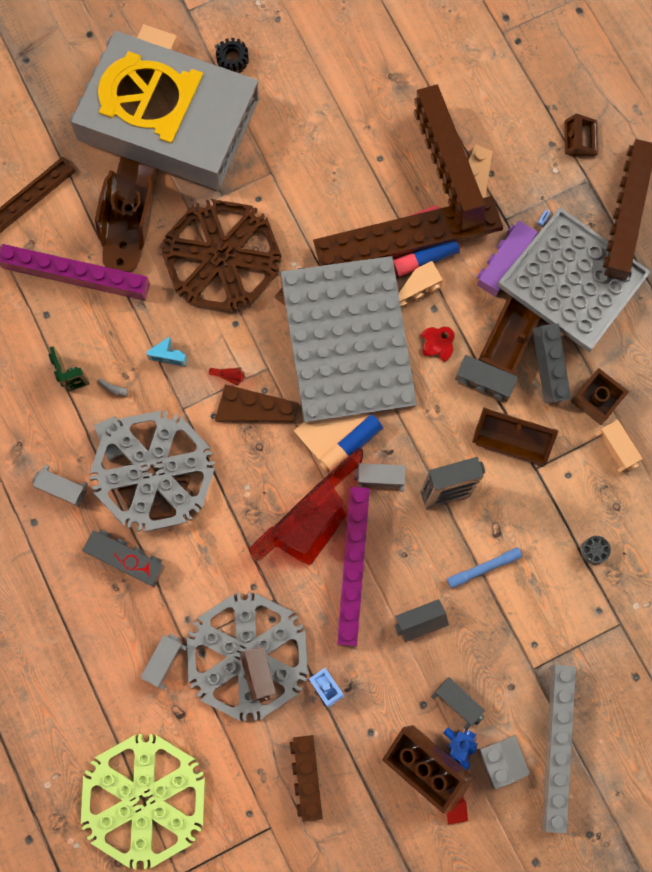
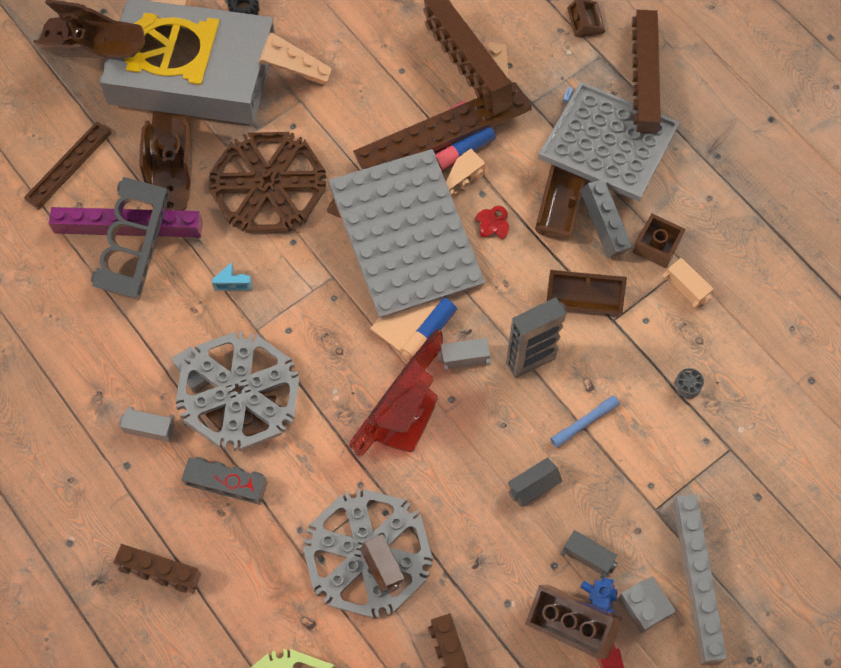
camera: 10 degrees left, 10 degrees down
(45, 632) = (158, 568): none -> reddish brown brick
(54, 335) = (145, 193): none -> dark grey fence
(68, 65) = (88, 33): none -> reddish brown piece
(73, 378) = (141, 319): dark green bracket -> none
(118, 390) = (185, 323): light grey helmet -> none
(162, 660) = (282, 572): light grey brick -> none
(232, 375) = (298, 288): clear red cone -> none
(247, 405) = (322, 313): reddish brown wing -> none
(265, 126) = (288, 57): none -> light nougat wing
(326, 687) = (454, 565): light blue slope -> none
(353, 567) = (456, 445): magenta brick -> none
(486, 378) = (546, 245): dark grey brick -> none
(508, 252) = (541, 127): medium lavender brick -> none

